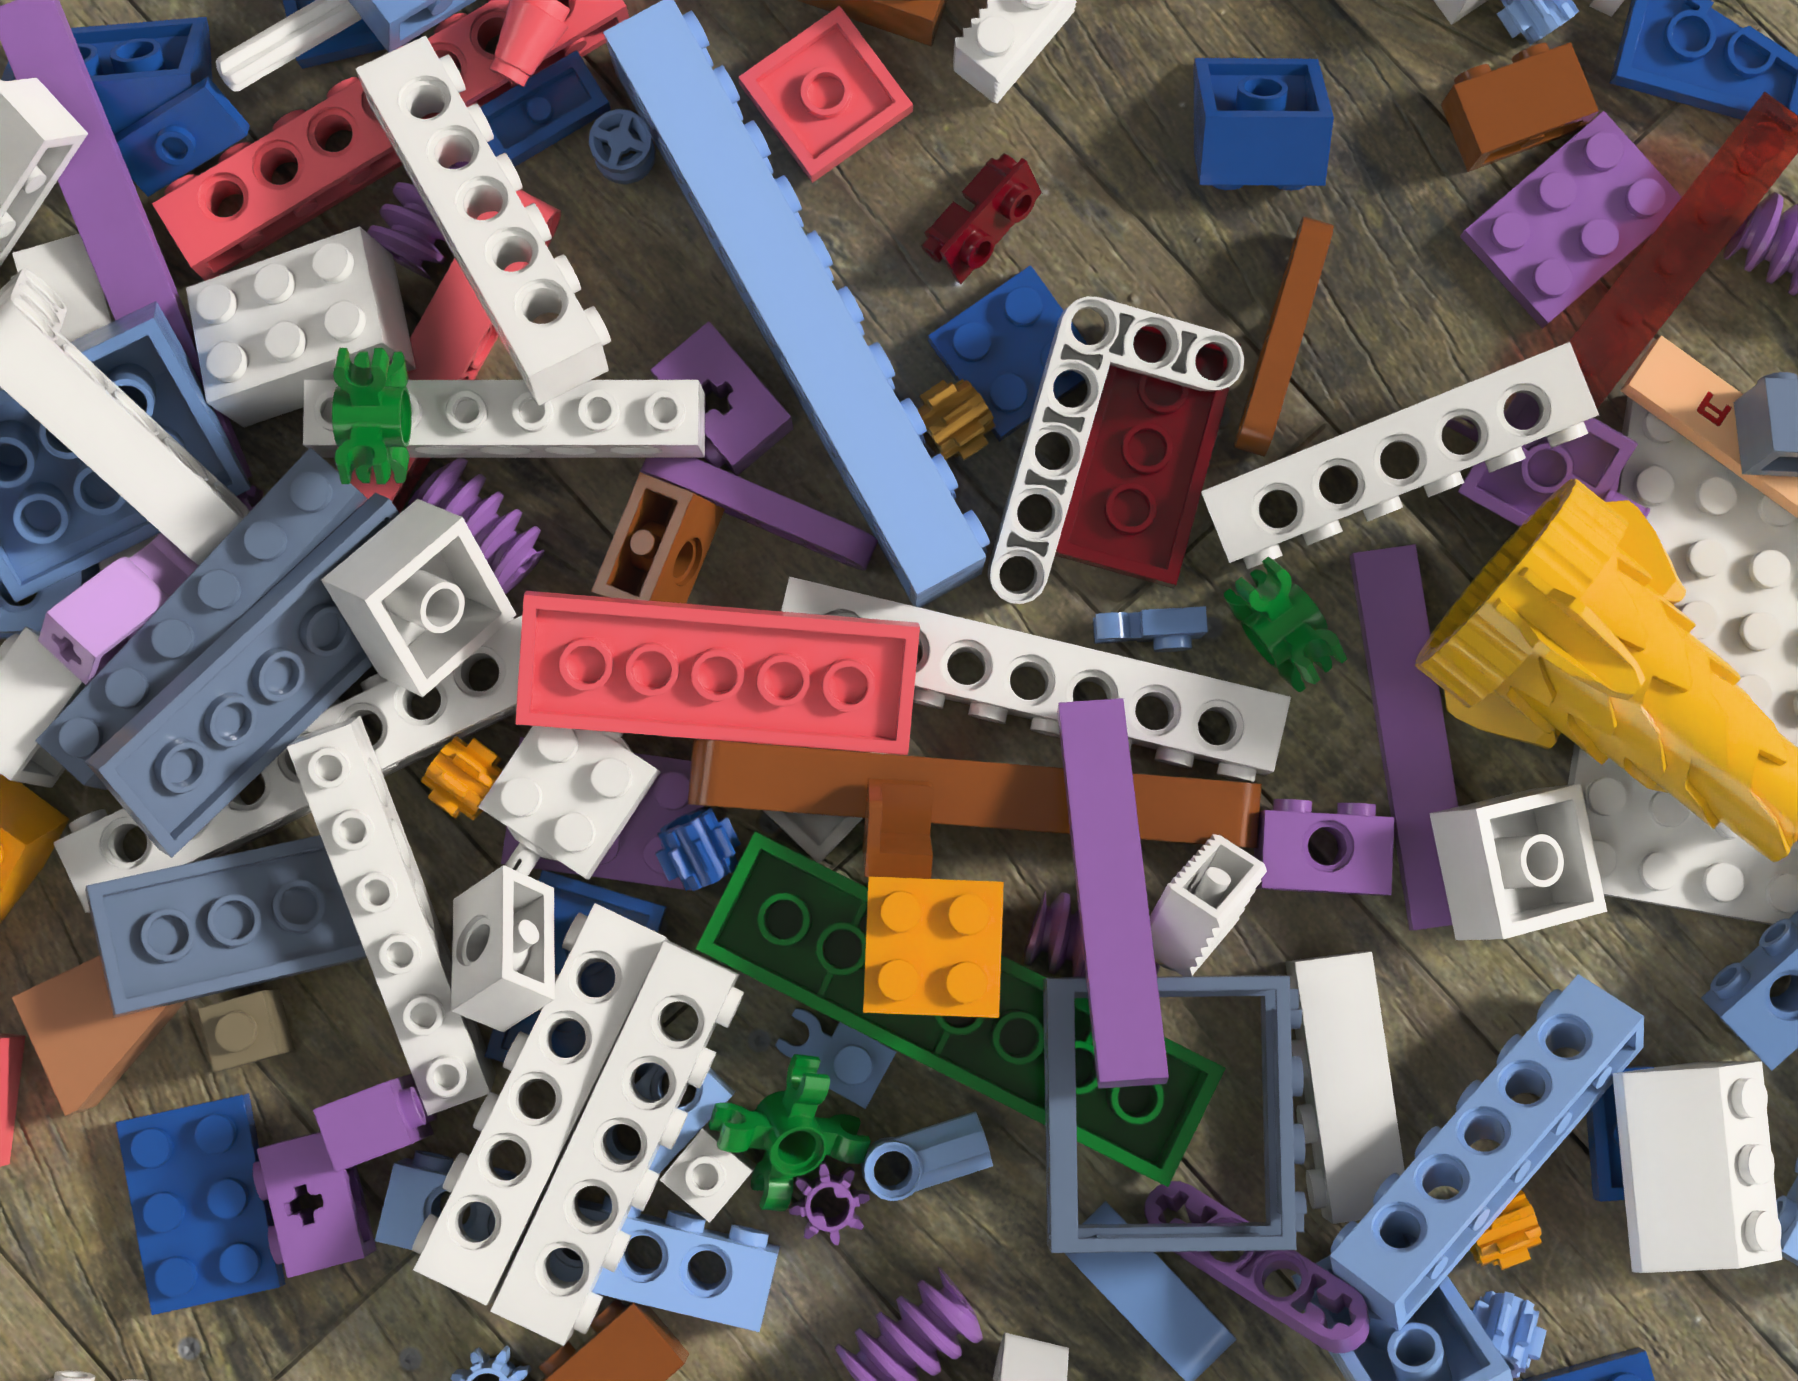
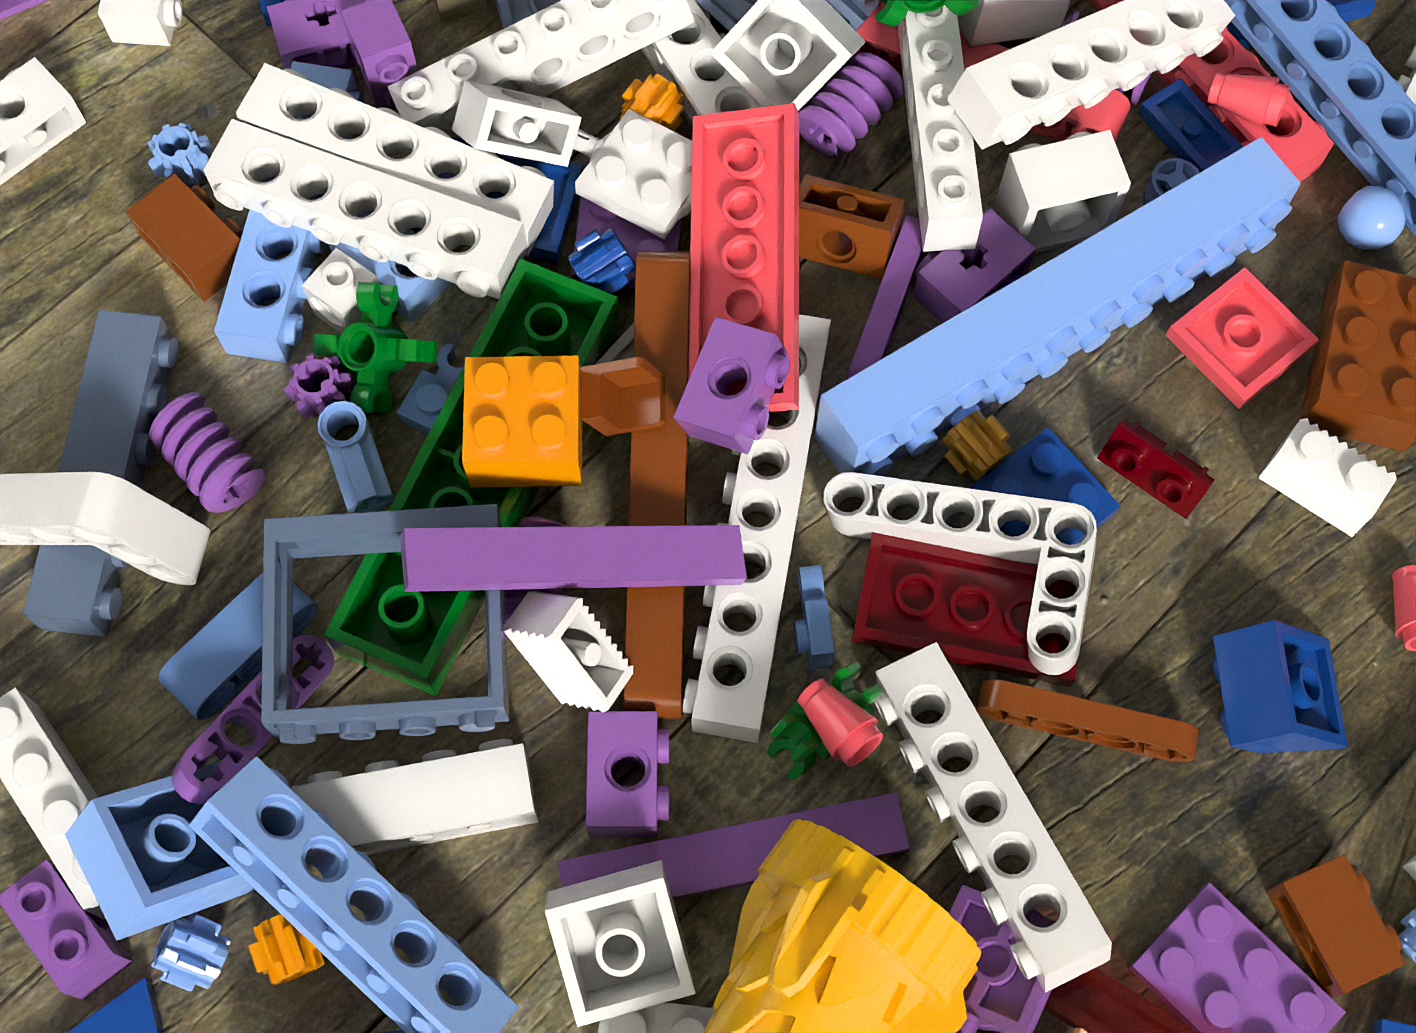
camera: 90 degrees right, 15 degrees down
(635, 279) = (1063, 189): none -> white brick
(924, 728) = (730, 355): none -> medium lavender brick
(1309, 605) = (840, 723): none -> coral cone

